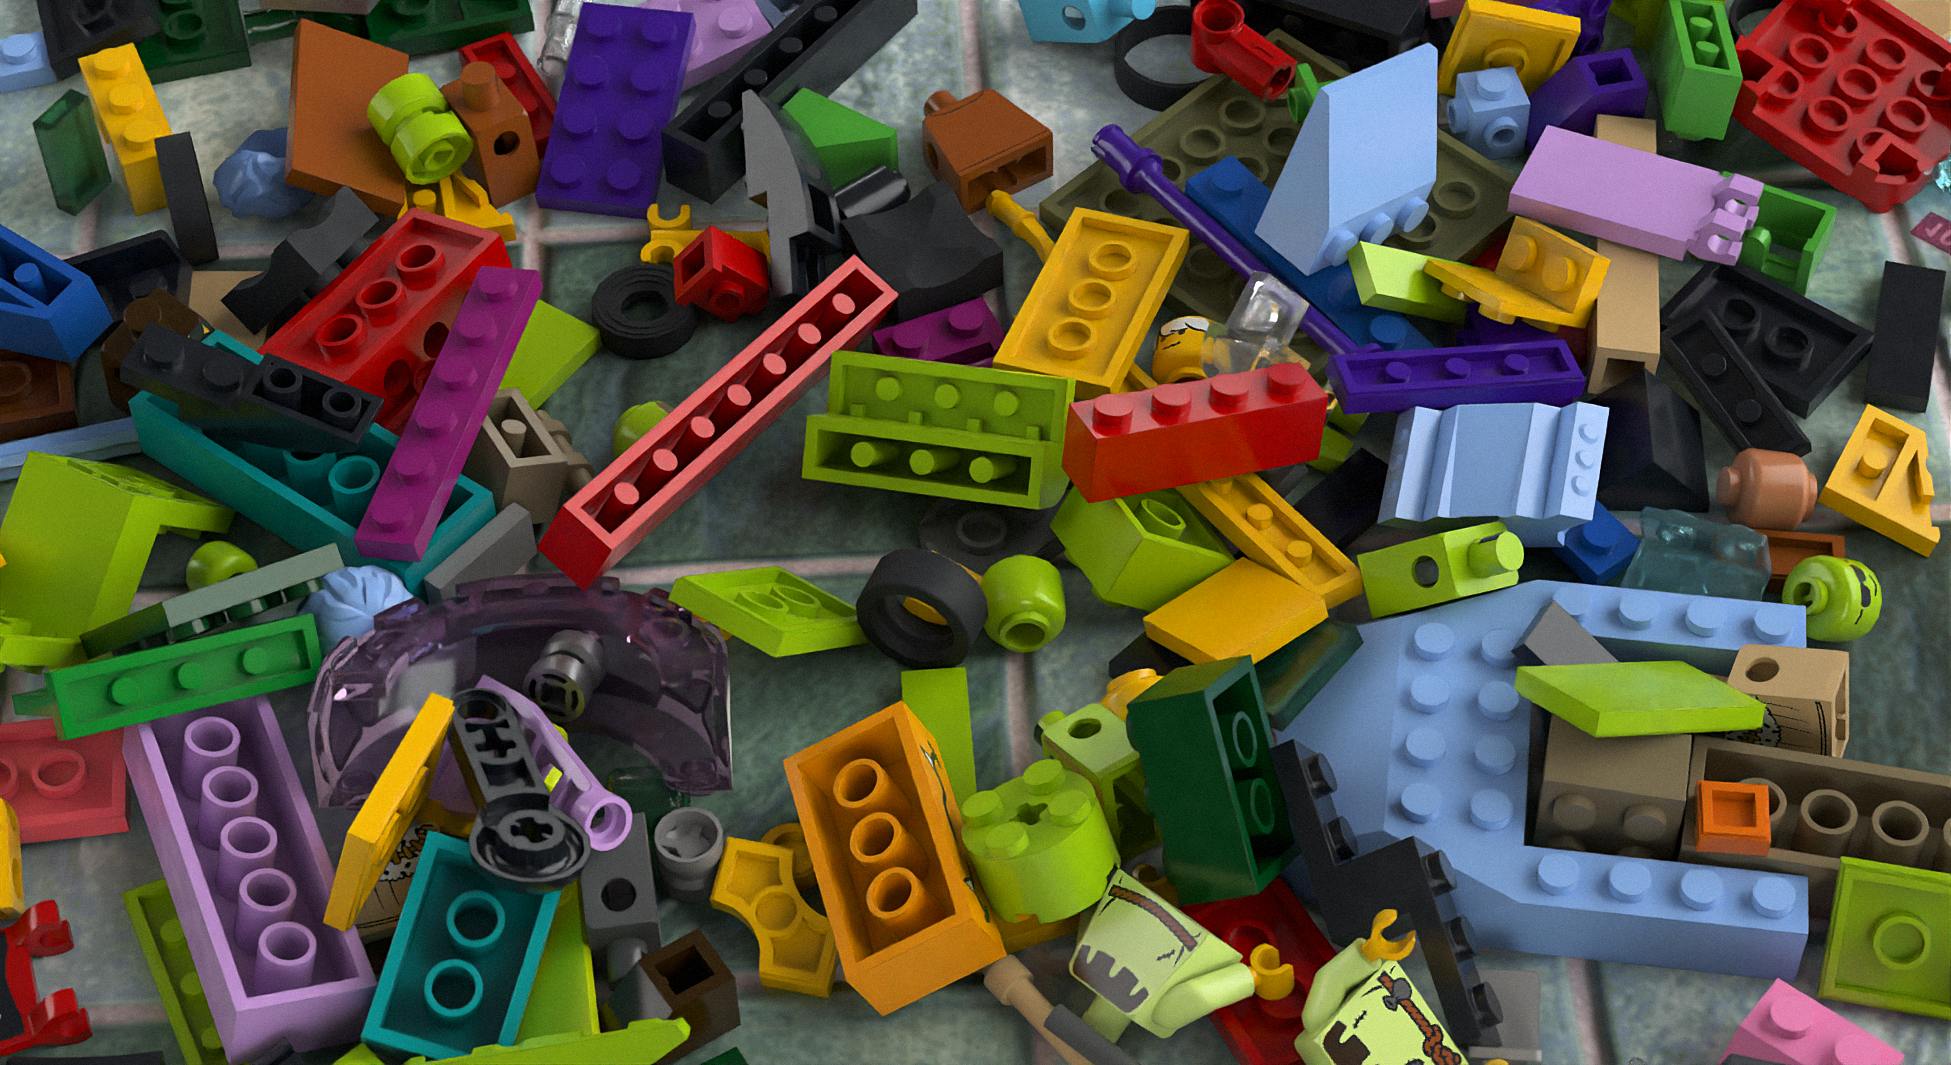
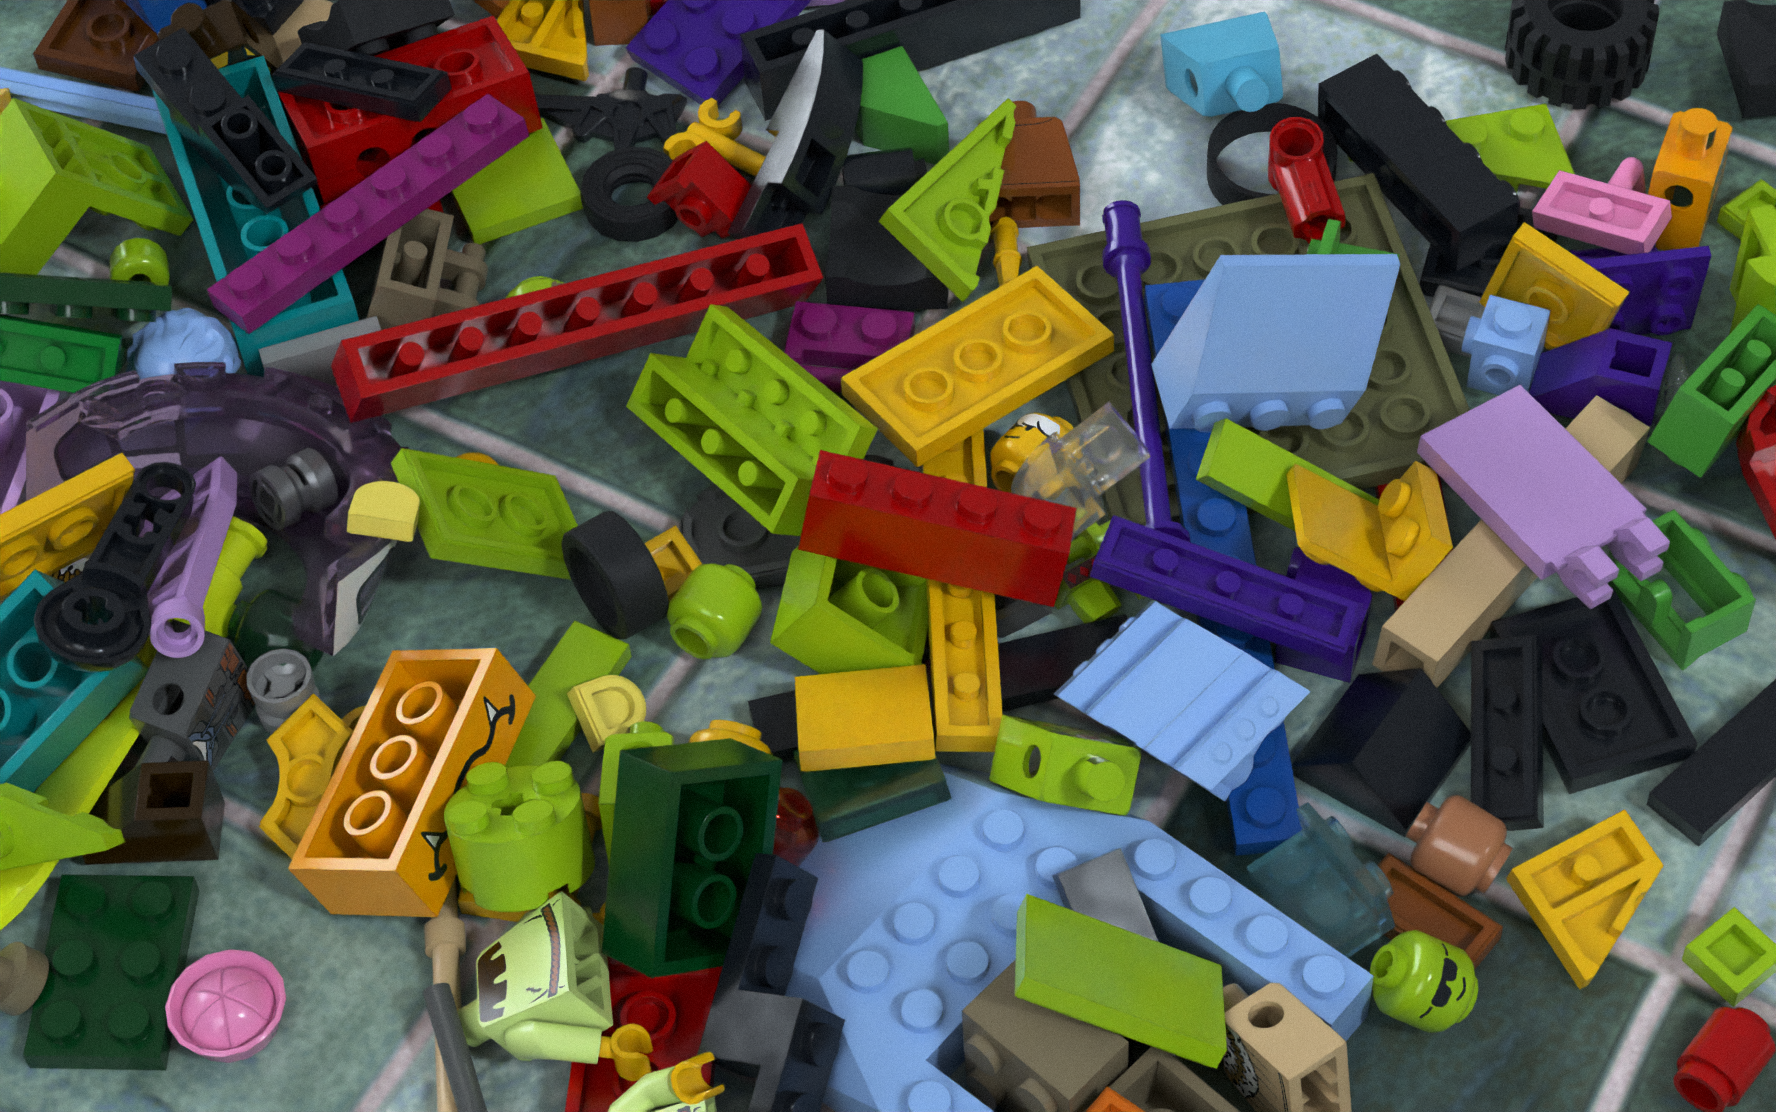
camera: 35 degrees right, 5 degrees up
(344, 307) = (362, 81): none -> black tile
(579, 250) = (619, 116): none -> black piece
(714, 633) = (384, 511): none -> light yellow tile
(969, 186) = (949, 208): none -> lime wing
(995, 727) = (607, 707): none -> light yellow tile

